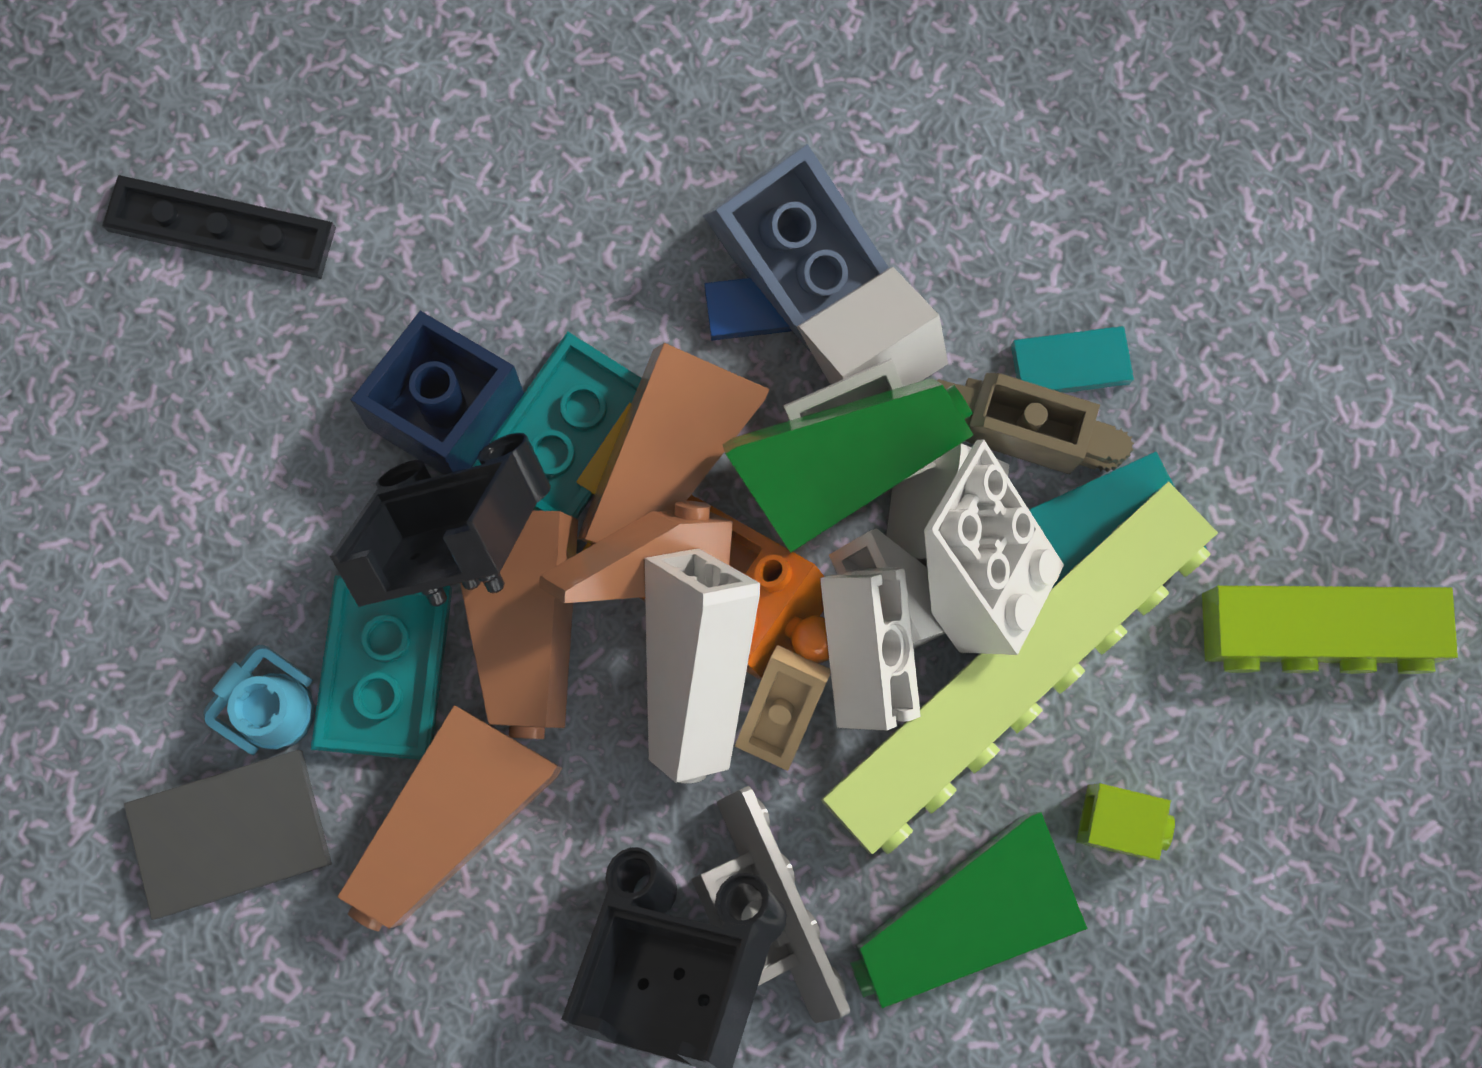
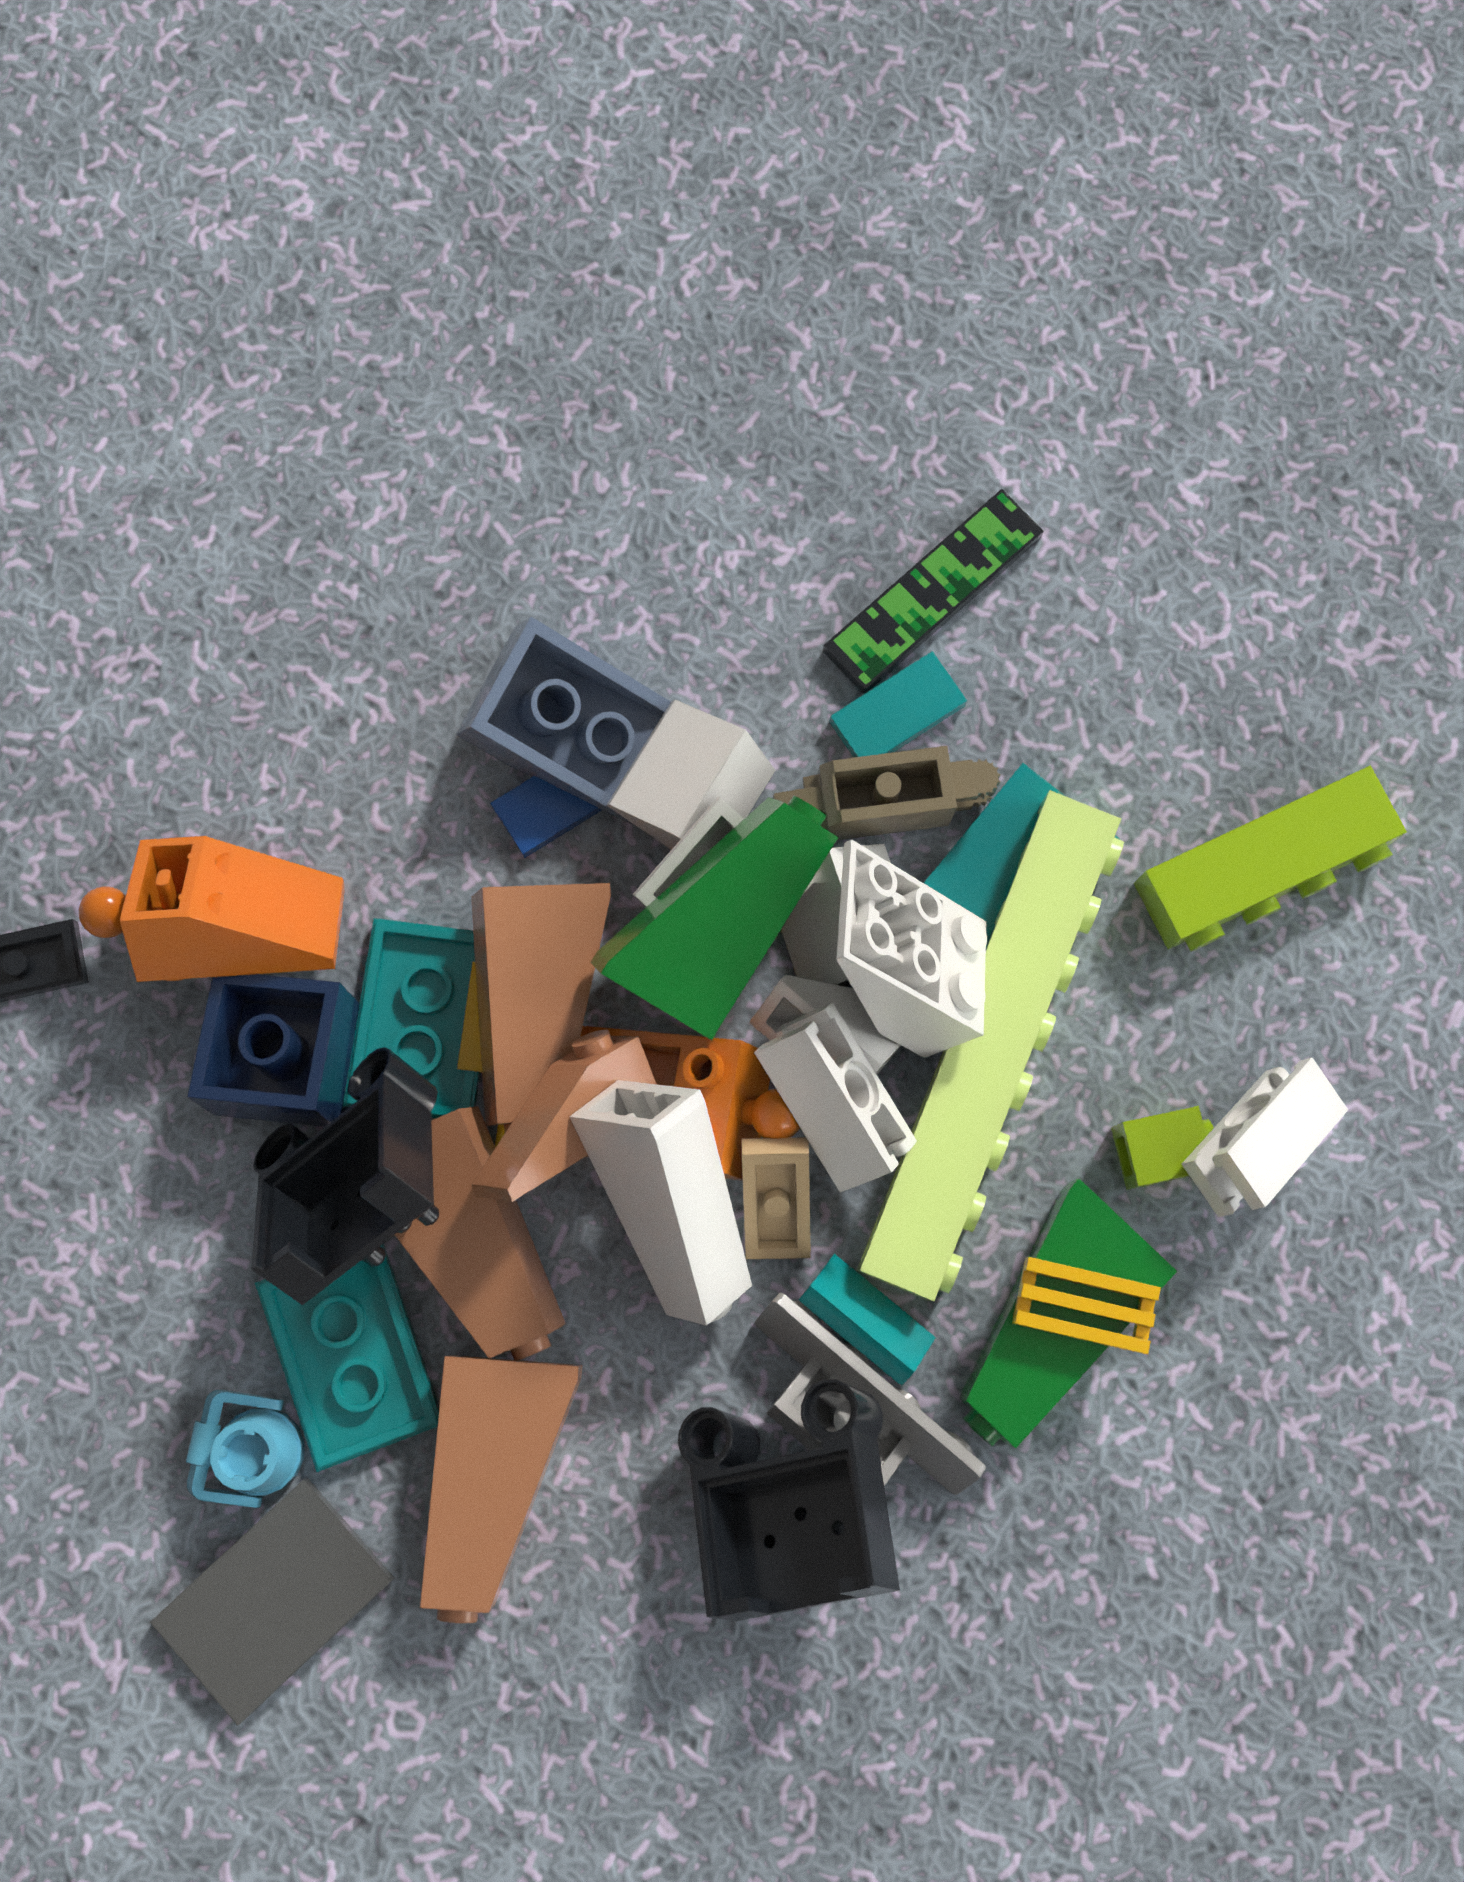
camera: 25 degrees left, 0 degrees up
(446, 266) = (218, 912): none -> orange slope
(810, 843) = (867, 1319): none -> teal tile
(1039, 952) = (1142, 1317): none -> yellow tile
(1147, 278) = (932, 591): none -> tile
(1215, 854) = (1265, 1137): none -> white piece

